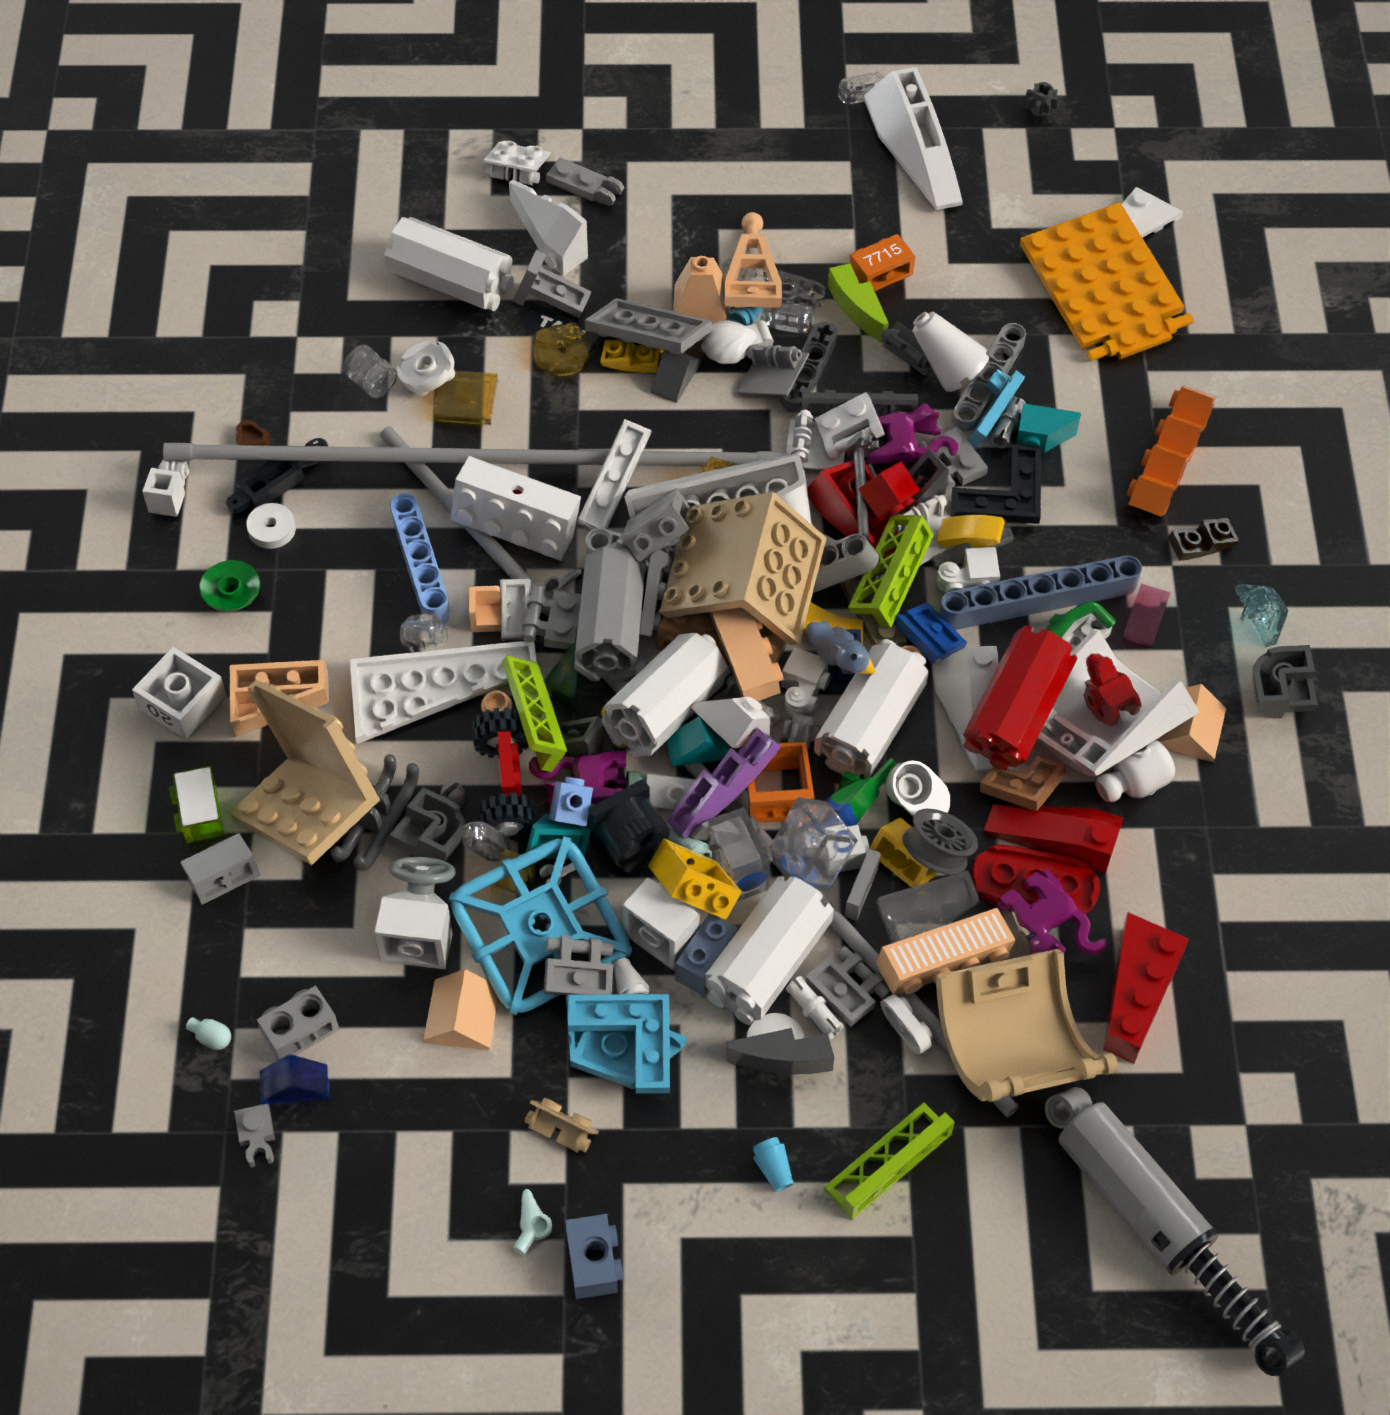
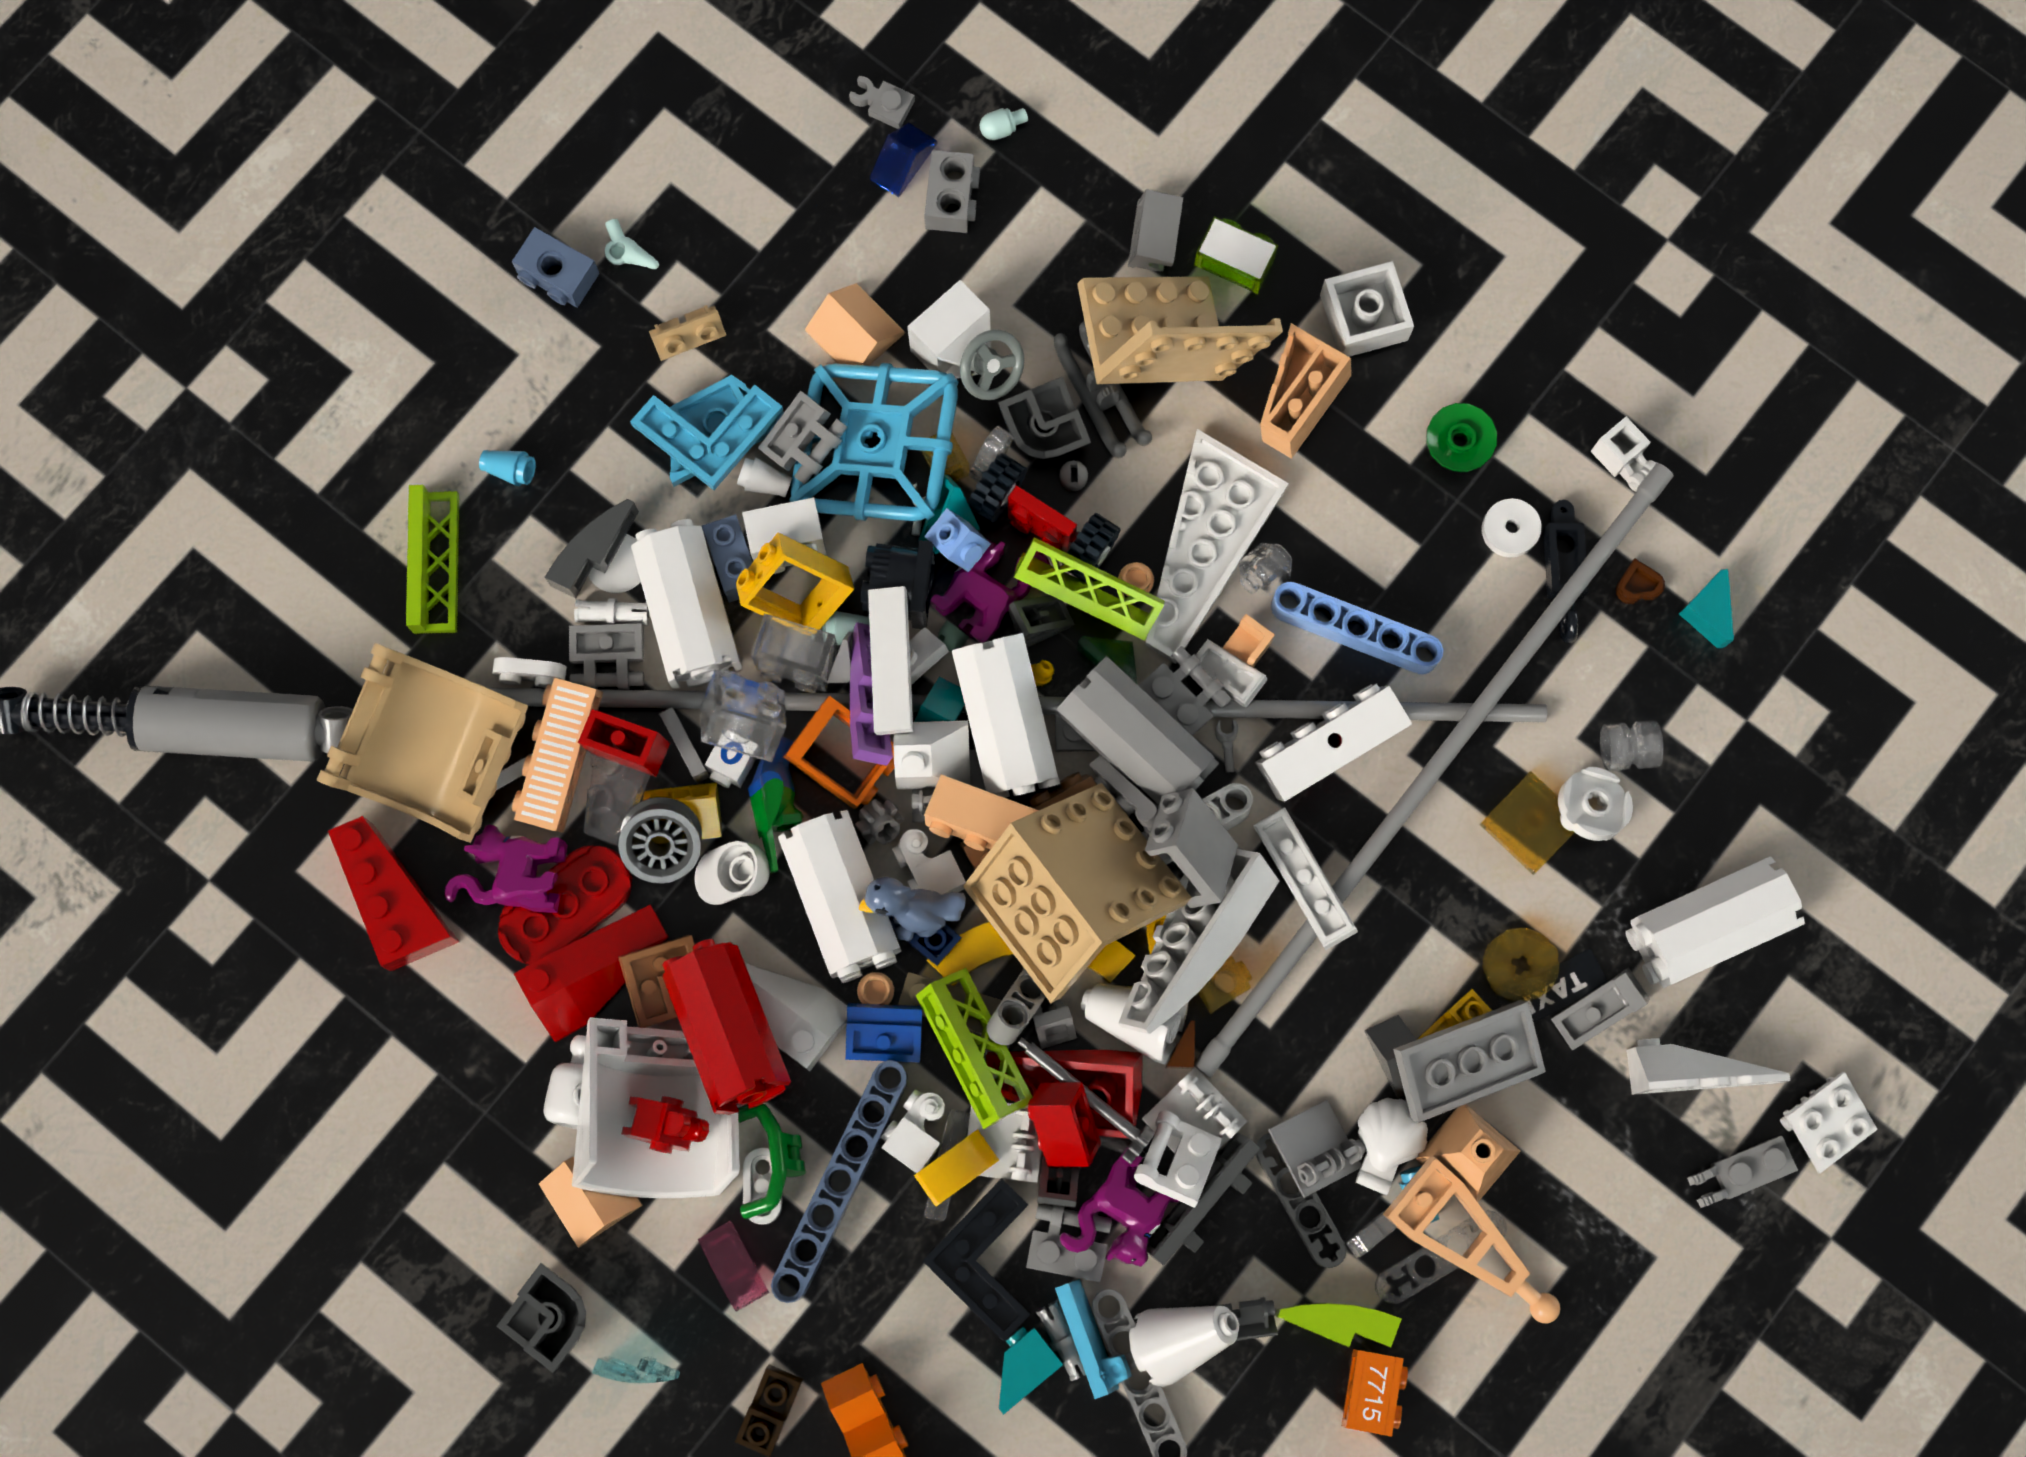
camera: 130 degrees right, 20 degrees up
(236, 387) = (1712, 611): none -> teal slope
(694, 770) = (890, 660): none -> white tile
(900, 902) = (624, 742): none -> red brick

